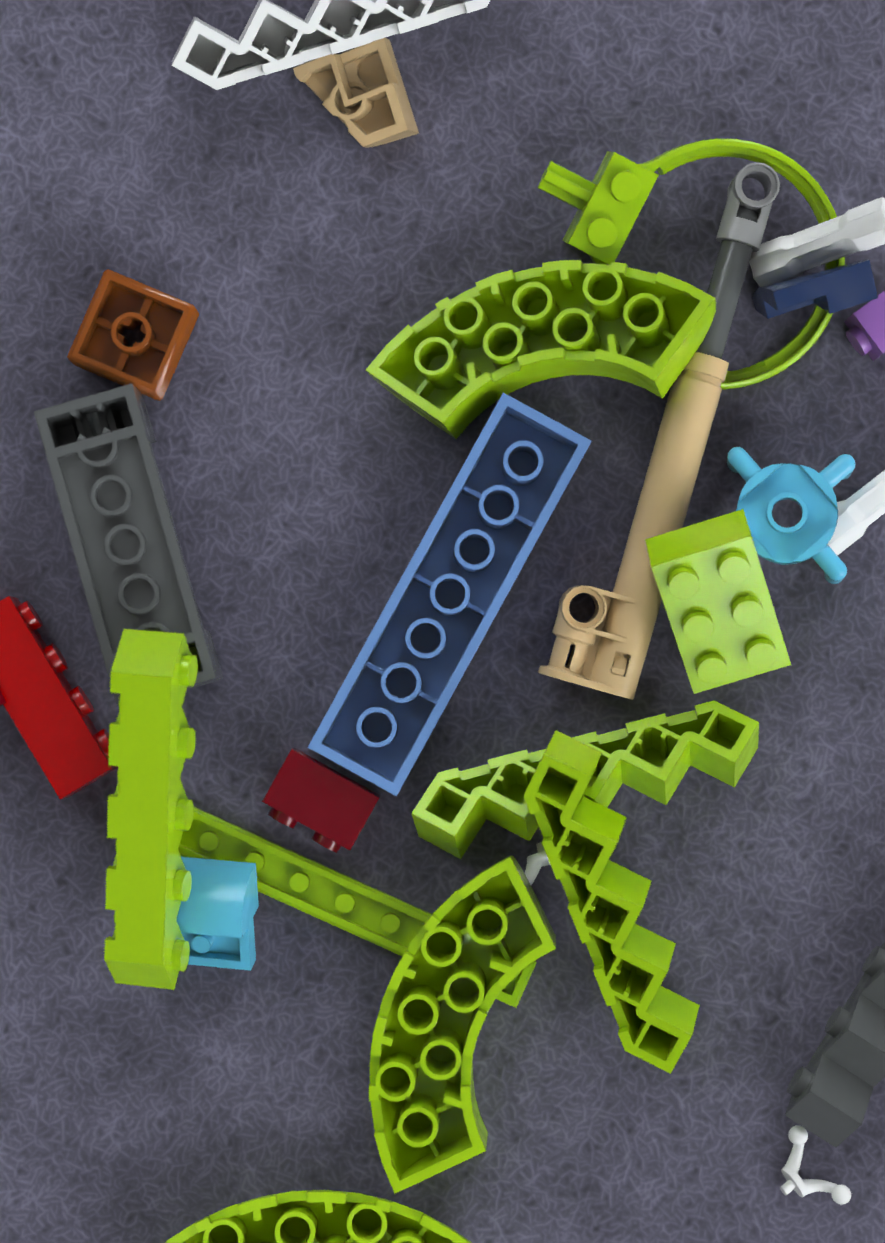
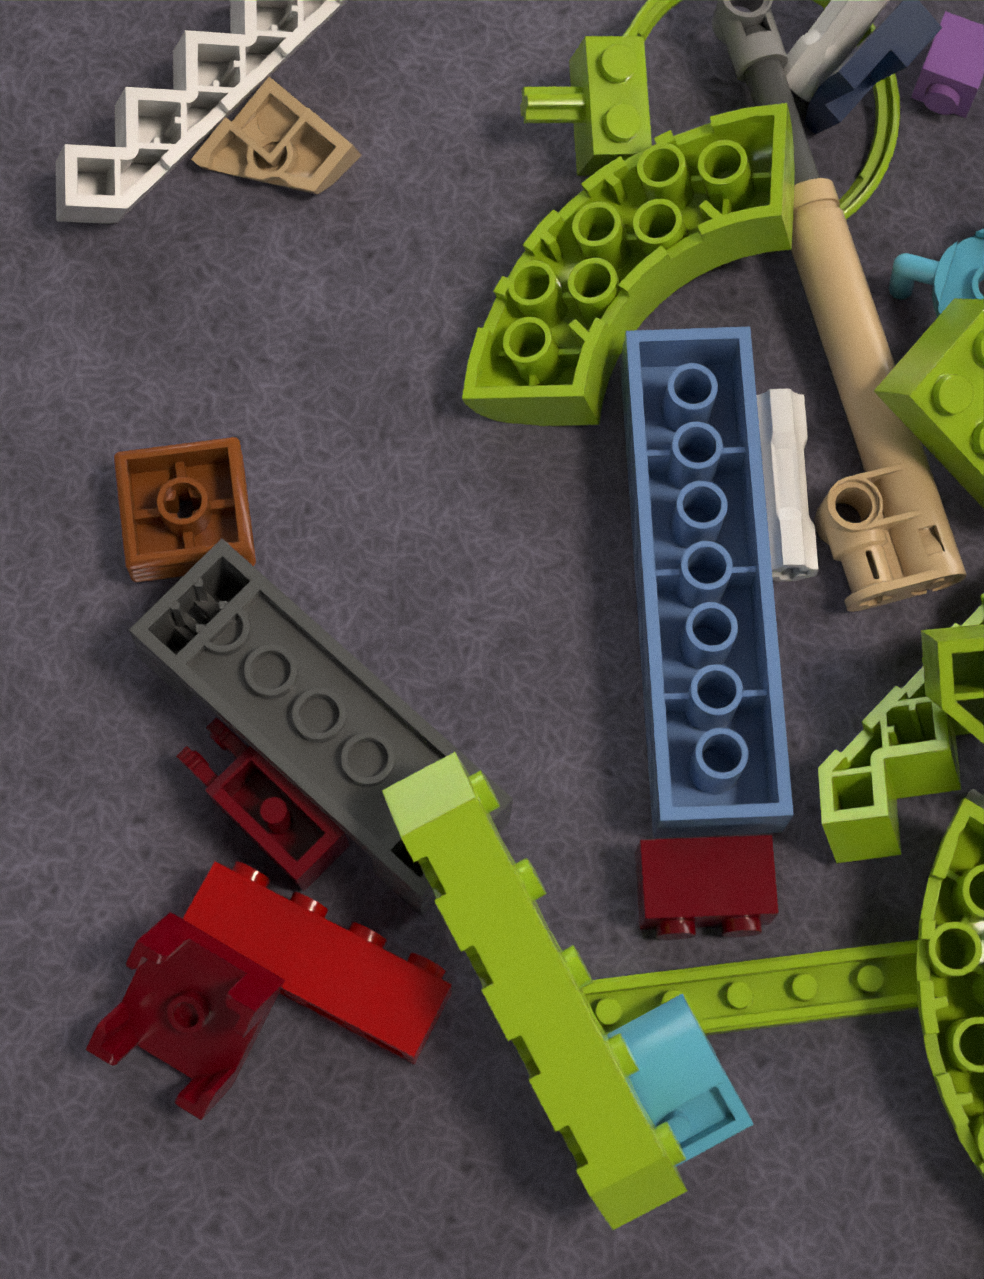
camera: 30 degrees left, 15 degrees down
(57, 581) = (268, 808): none -> dark red hinge
(569, 529) = (782, 448): none -> white axle

